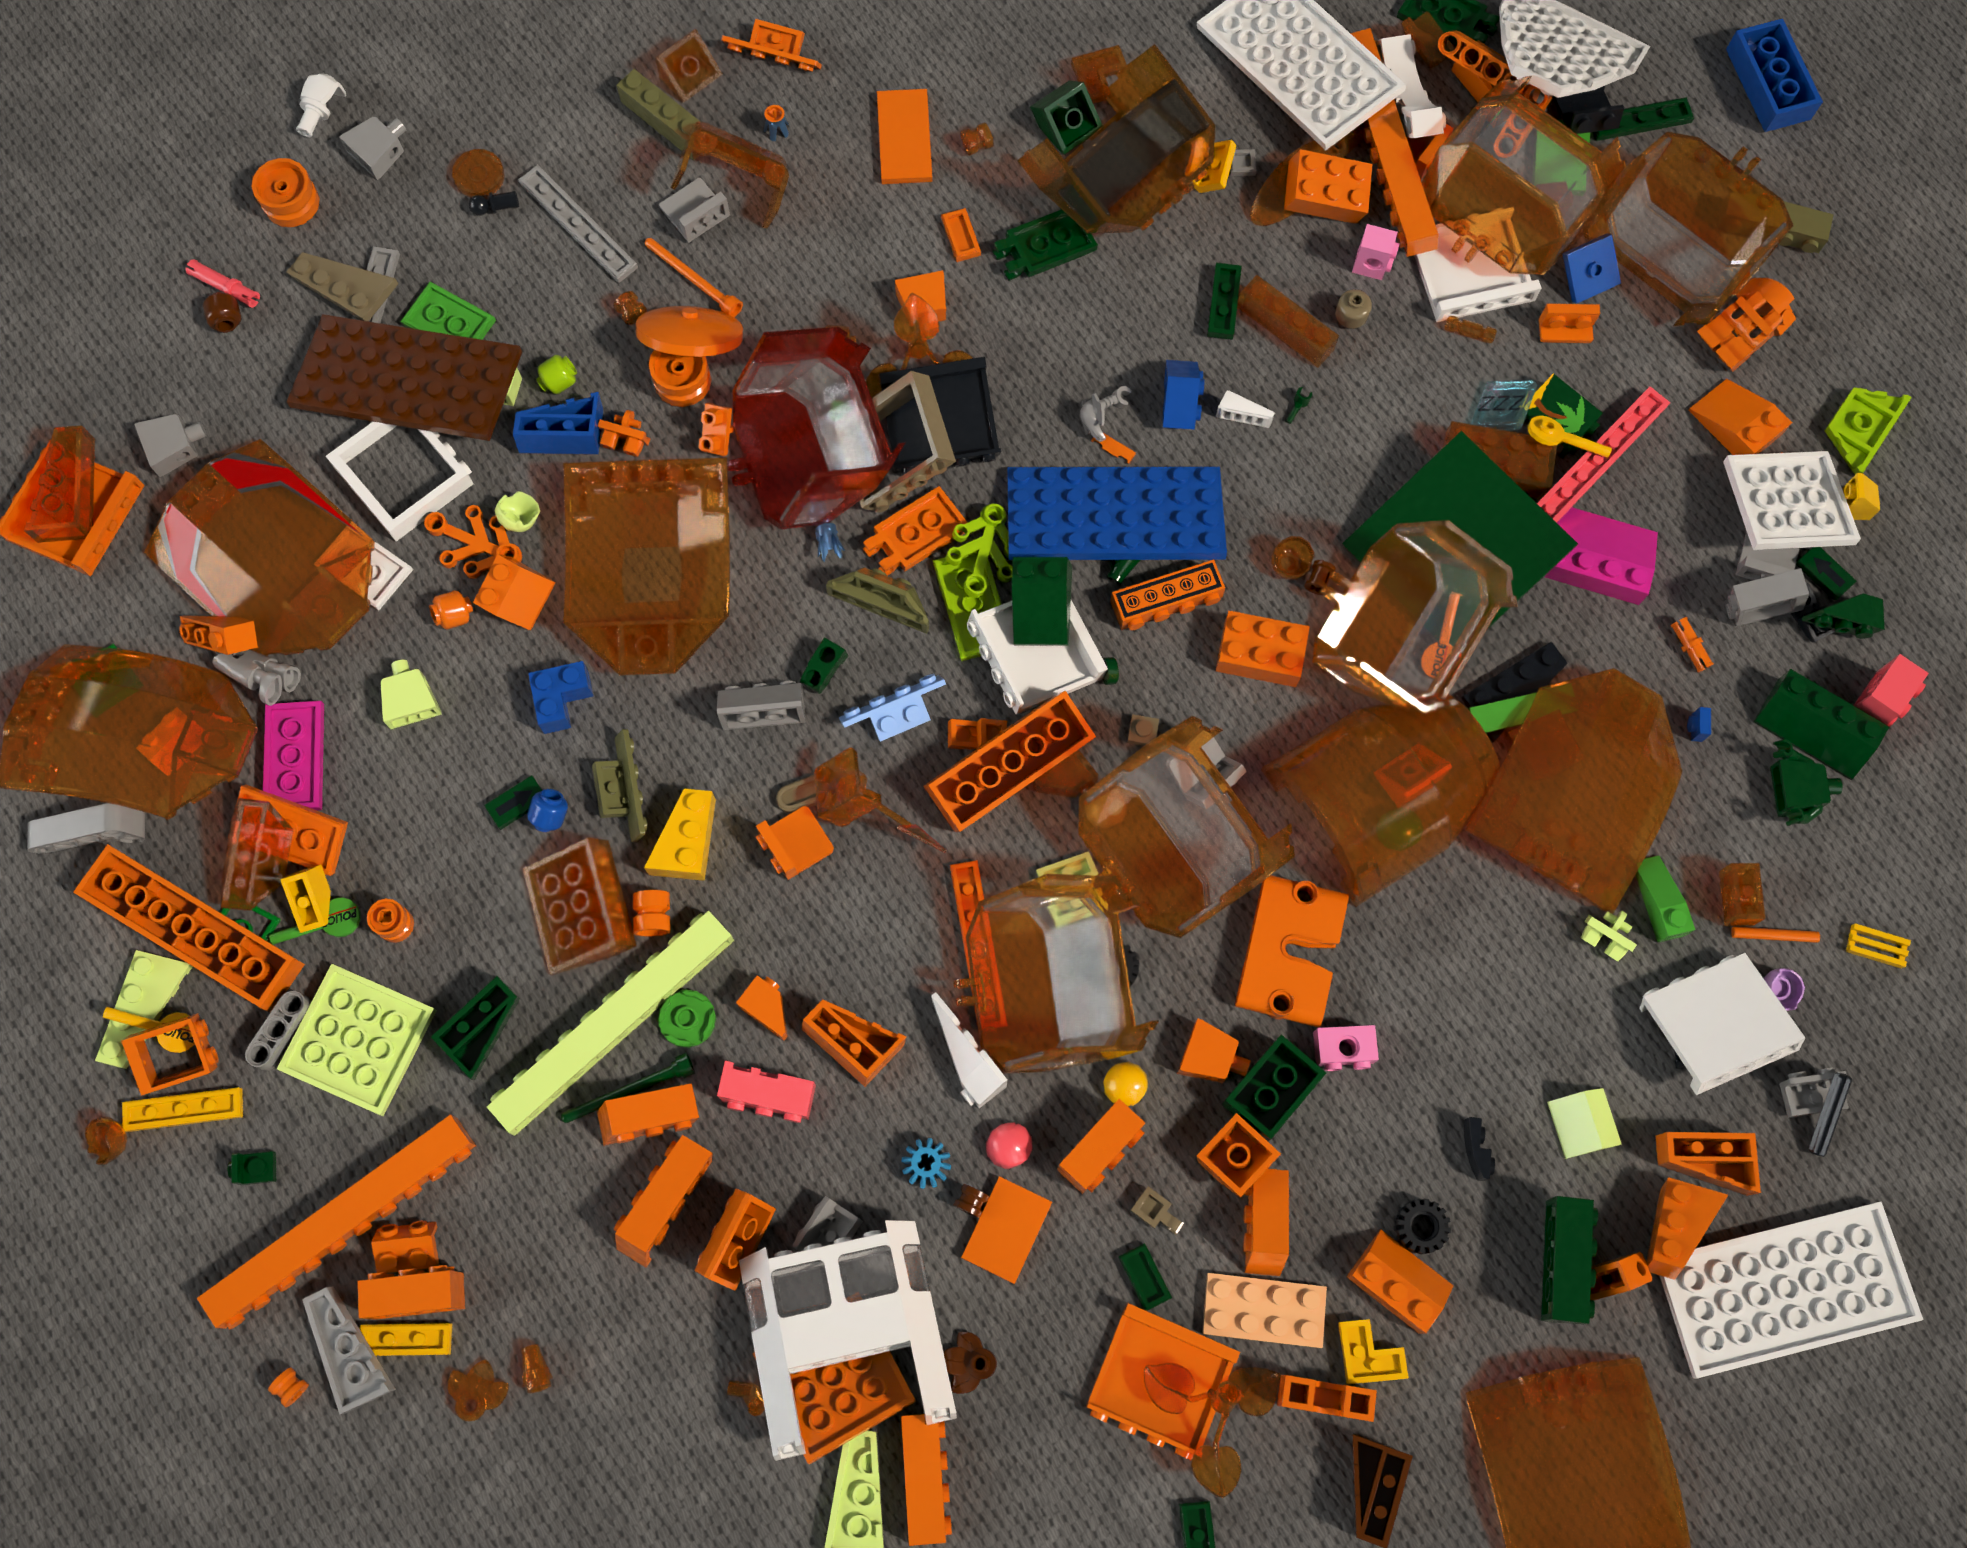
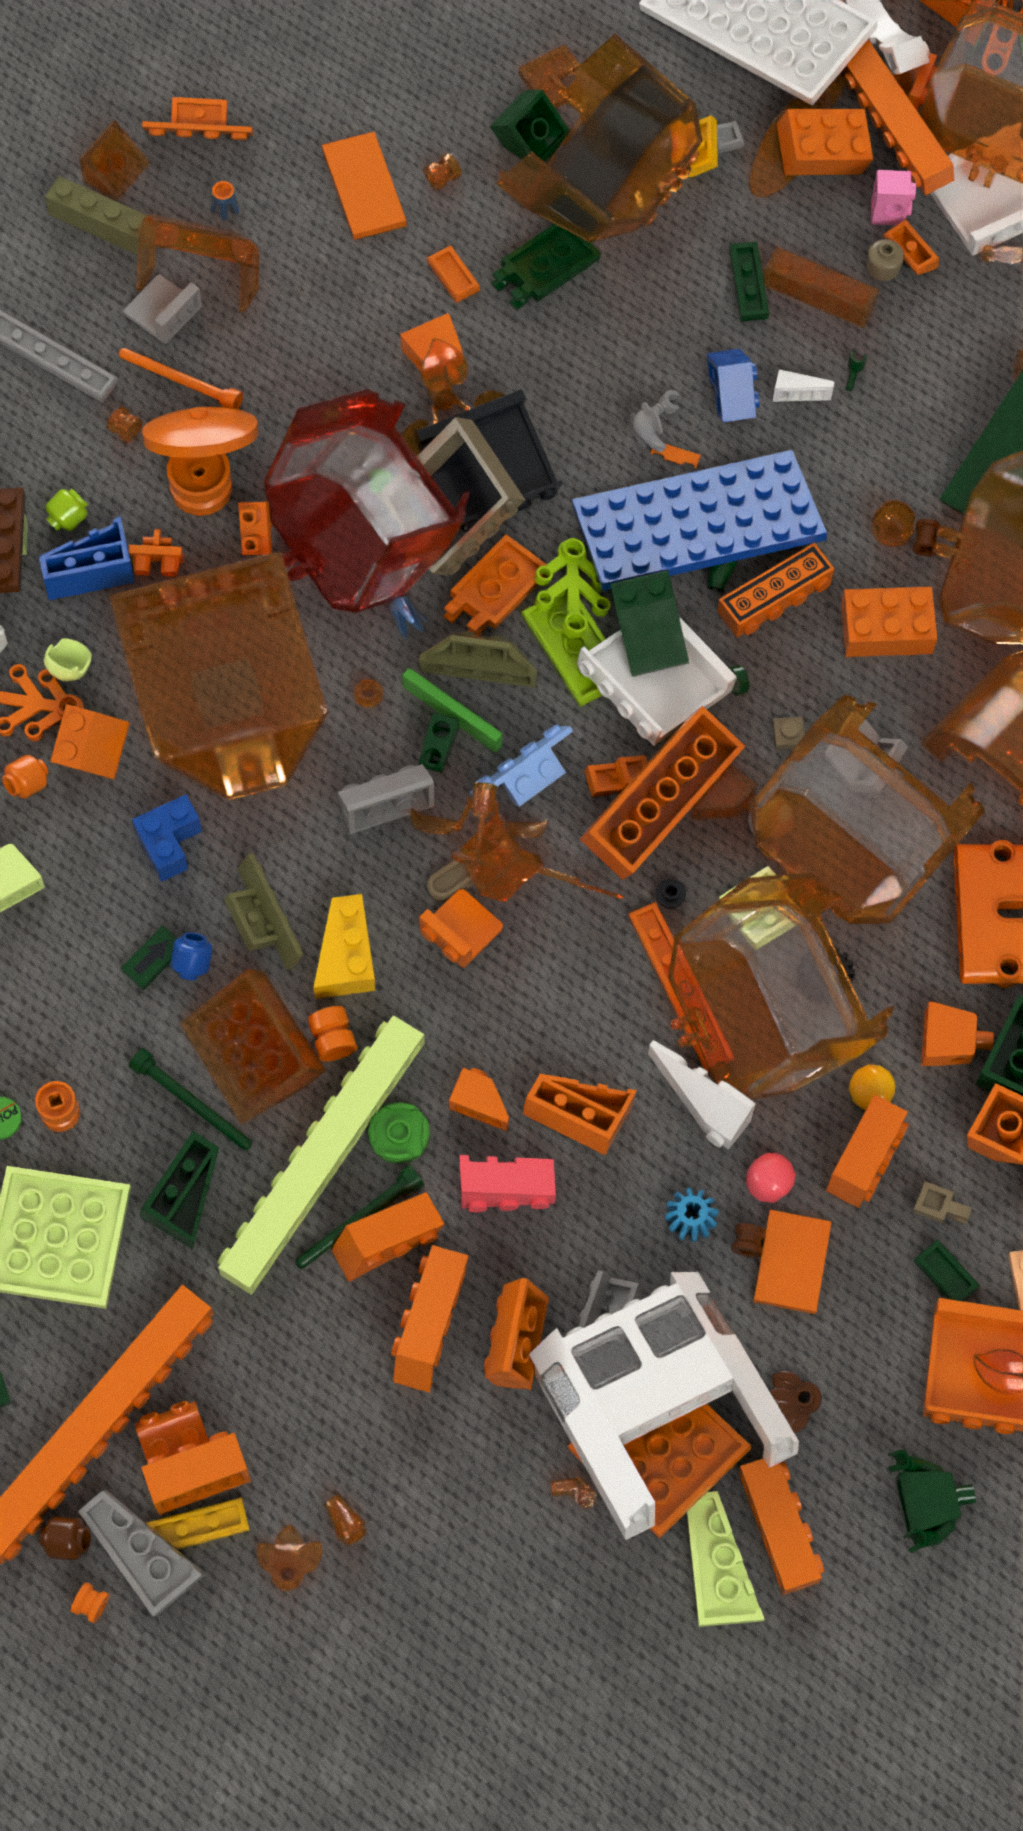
camera: 15 degrees left, 5 degrees down
(283, 1321) = (65, 1538): none -> reddish brown head
(480, 899) = (145, 1064): none -> dark green piece
(771, 597) = (368, 685): none -> clear orange plate
(840, 736) = (482, 804): none -> clear orange plant
(844, 638) = (450, 707): none -> bright green tile
(989, 863) = (670, 901): none -> black plate
(1066, 1493) = (928, 1499): none -> dark green torso
(1383, 303) = (915, 249): none -> orange slope

